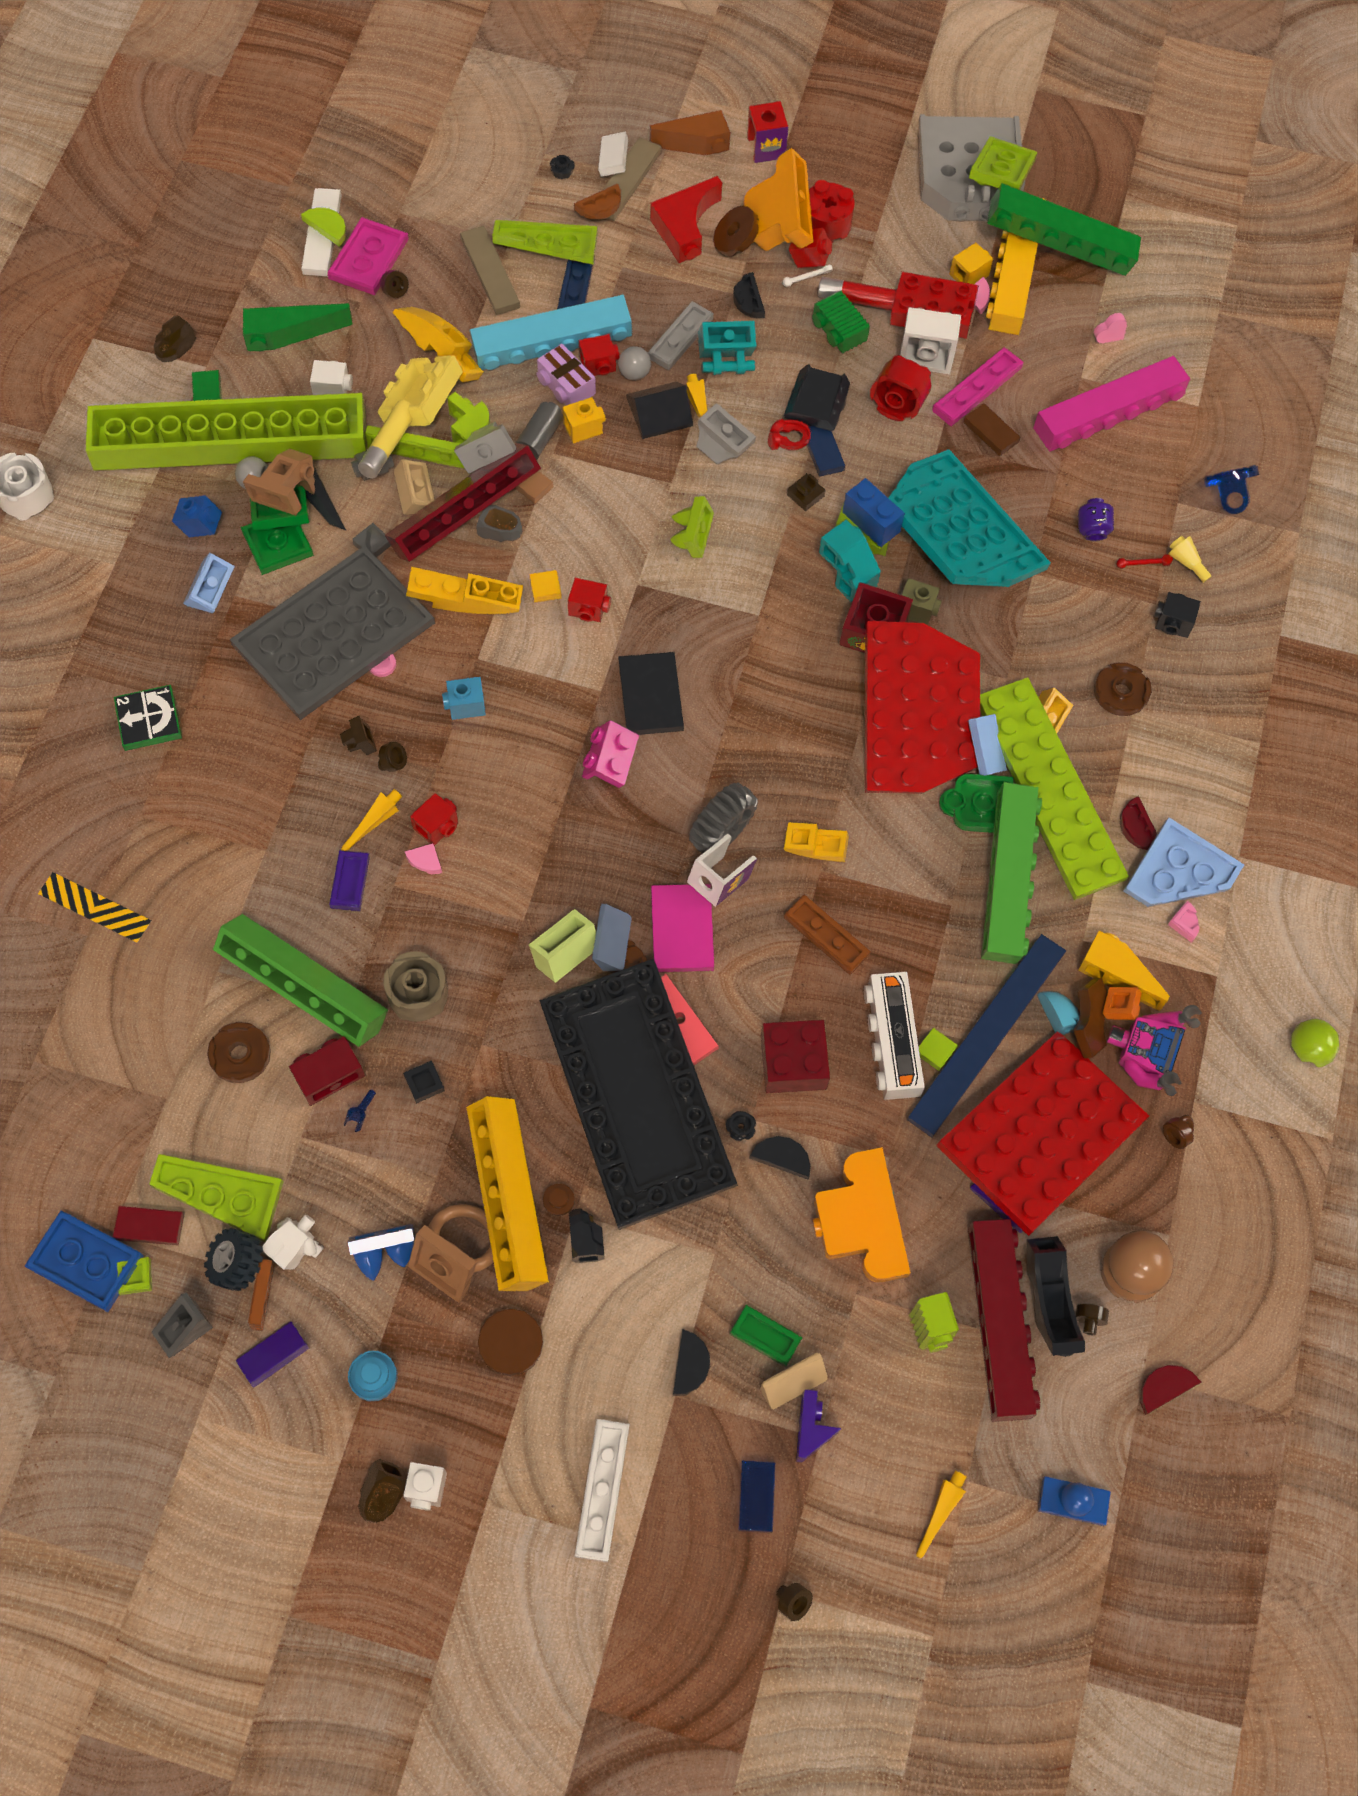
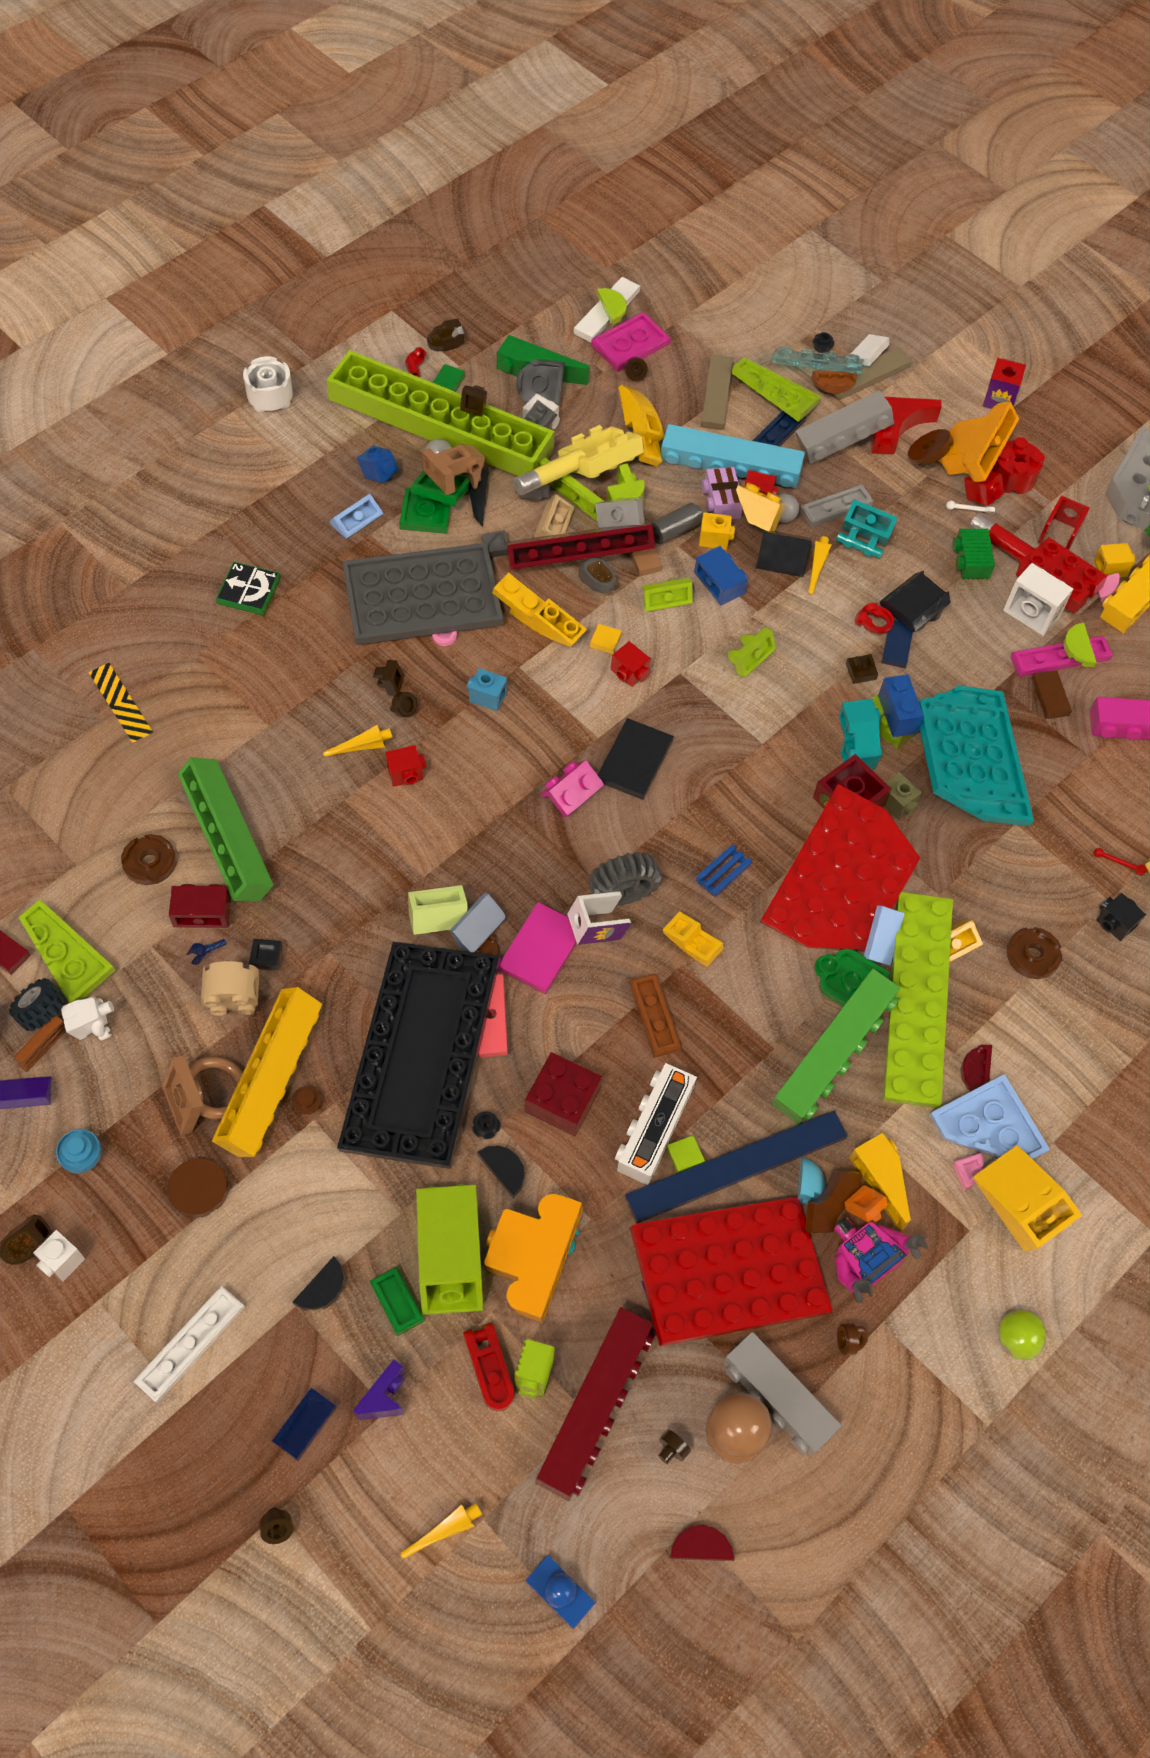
camera: 30 degrees right, 5 degrees down
(156, 384) = (414, 360): none -> red arm
(261, 399) = (473, 400): none -> dark brown tile
(307, 341) = (541, 378): none -> black tile
(335, 381) = (541, 415): none -> dark grey tile
(349, 880) = (313, 778): dark purple tile -> none
(368, 1248) = (139, 1057): blue tile -> none
(416, 1134) = (230, 988): none -> tan brick
(418, 1003) = (305, 880): dark tan brick -> none
(424, 859) = (379, 792): bright pink tile -> none
(564, 191) = (809, 358): none -> clear light blue plate
(578, 509) = (667, 594): none -> lime tile
(585, 1237) = (305, 1140): black rock -> none
(616, 464) = (720, 575): none -> blue brick
(617, 375) = (759, 508): none -> yellow slope
(644, 249) = (845, 427): none -> light grey brick
(694, 134) = (944, 363): dark orange slope -> none
(722, 435) = (820, 593): light grey slope -> none
(748, 298) = (910, 502): black tile -> none
(786, 1259) = (449, 1249): none -> lime slope
(793, 1381) = (383, 1348): tan slope -> none
(807, 740) = (737, 857): none -> blue tile
(889, 1344) = (490, 1368): none -> red plate
(901, 388) = (990, 625): red brick -> none
(916, 242) = (1059, 515): none -> red piece
(991, 369) = (1079, 646): none -> lime tile
(1053, 1298) = (648, 1409): black arch -> none
(1096, 519) = (1095, 806): dark purple head -> none
(1139, 1209) = (783, 1395): none -> light grey brick
(1253, 920) = (1026, 1198): none -> yellow slope

